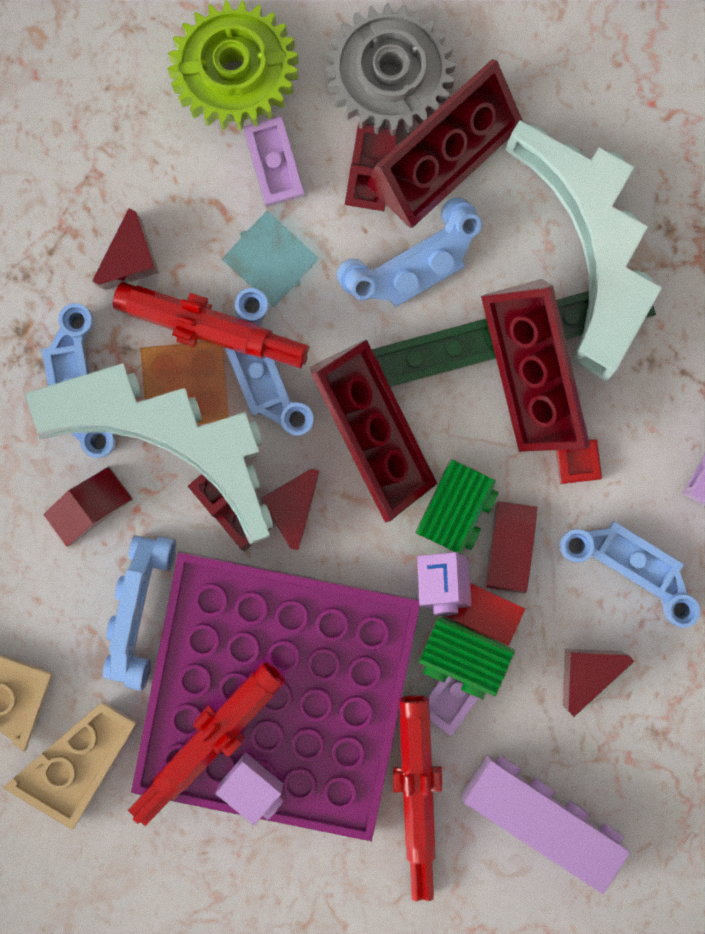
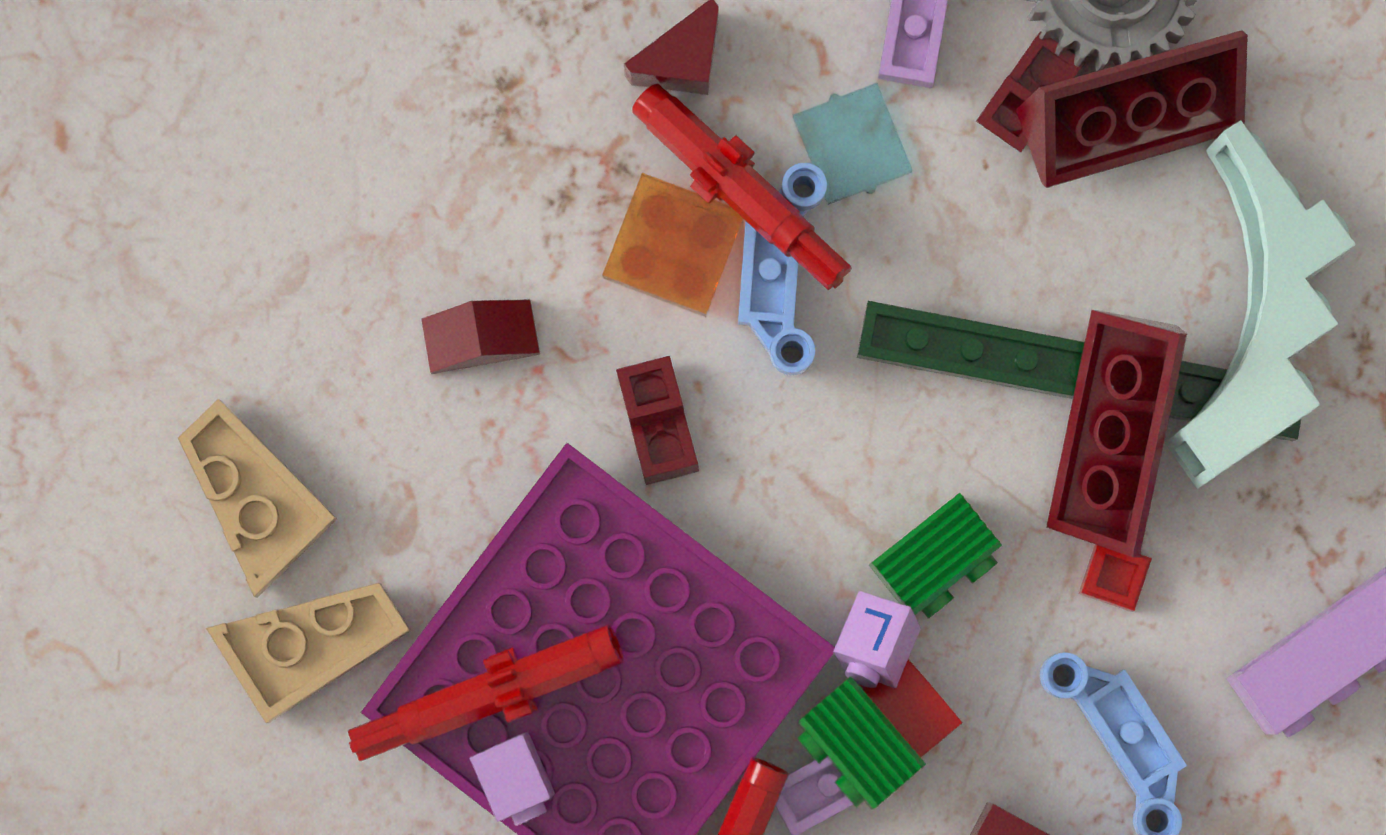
camera: 30 degrees right, 5 degrees down
(68, 360) = (536, 174): light blue plate -> none
(108, 404) = (676, 339): light aqua arch -> none
(132, 592) = (454, 503): light blue plate -> none
(291, 505) = (733, 453): dark red slope -> none
(373, 428) = (881, 409): dark red slope -> none
(418, 266) = (1032, 238): light blue plate -> none
(511, 547) = (980, 640): dark red slope -> none

